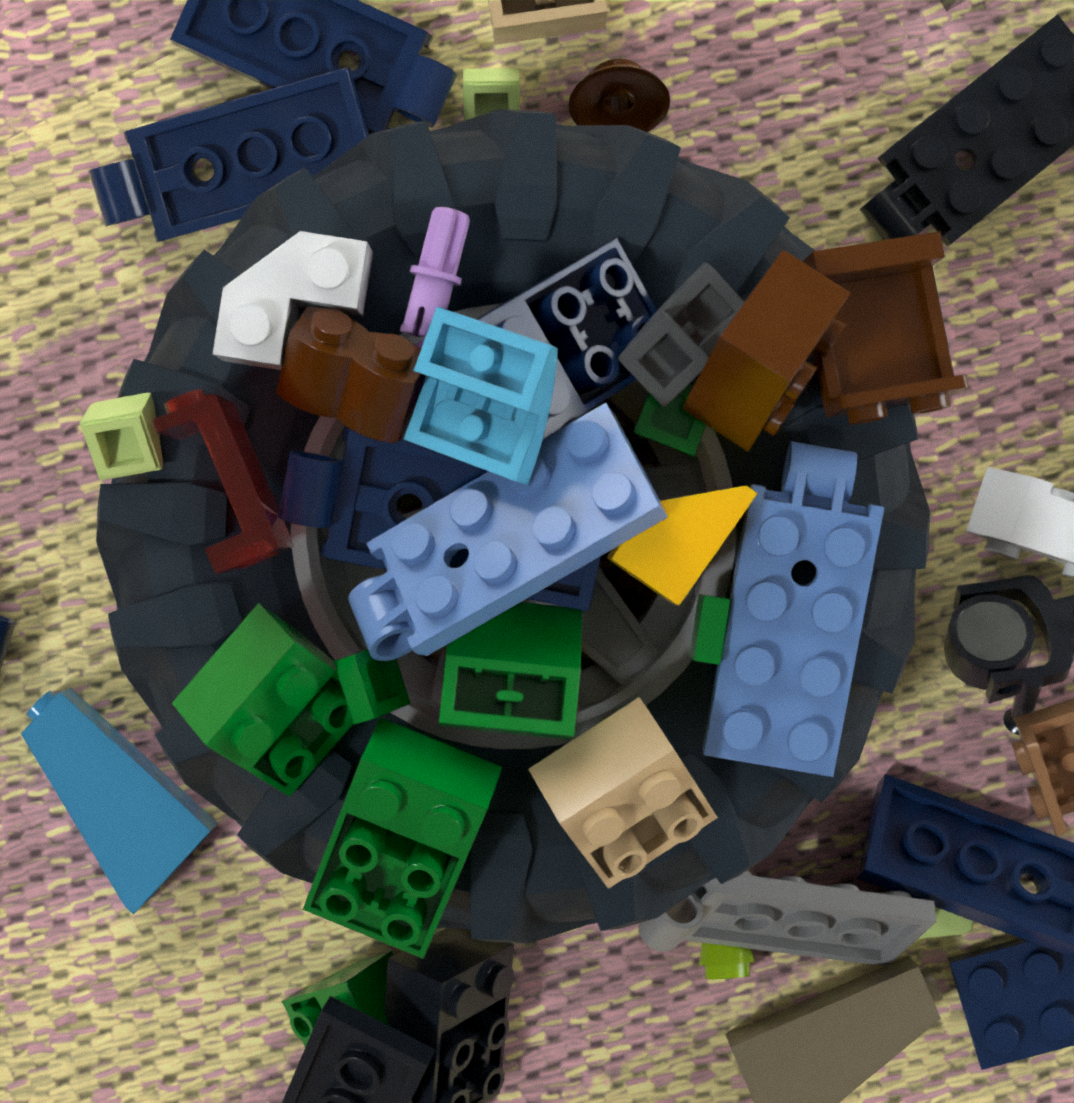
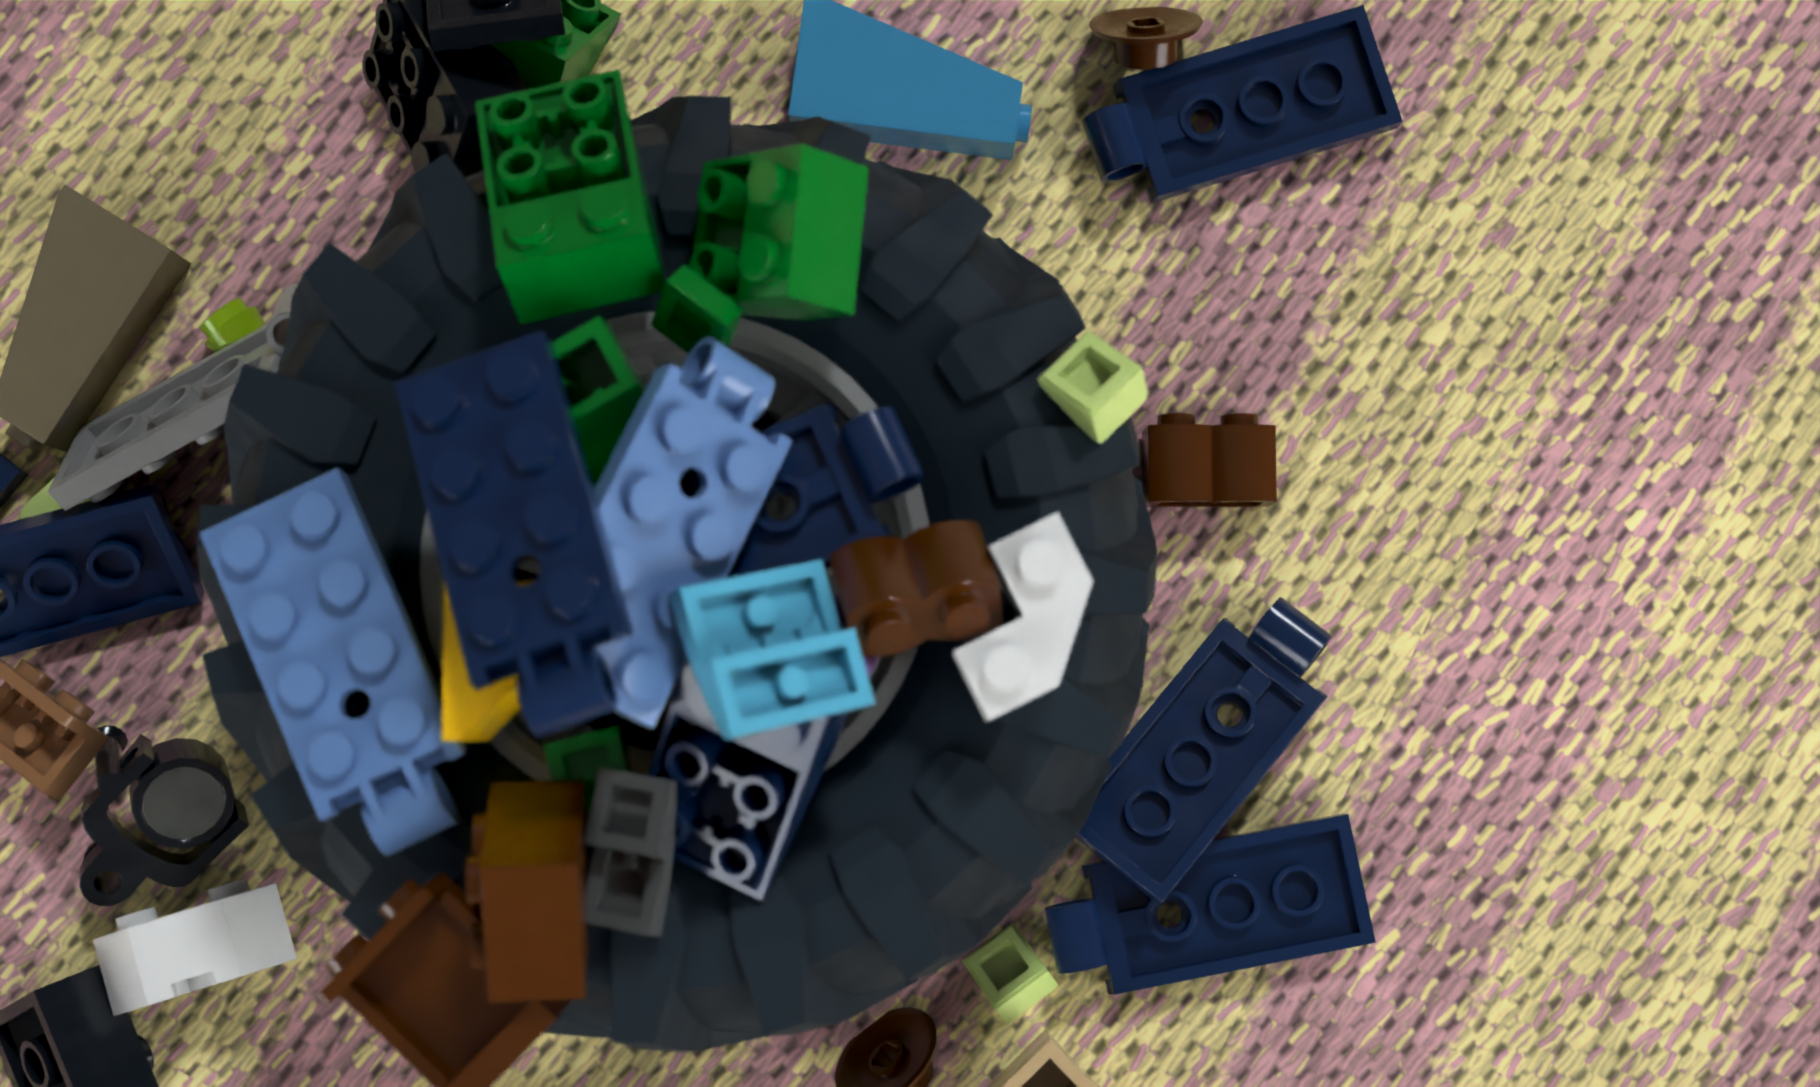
camera: 145 degrees right, 5 degrees down
(79, 353) = (1209, 463): none -> reddish brown brick
(240, 473) = (943, 414): clear red panel -> none
(436, 269) = (909, 743): lavender axle -> none
(593, 634) = (507, 488): none -> dark blue hinge
(622, 793) = (365, 349): tan slope -> none
(709, 629) = (413, 589): green tile -> none

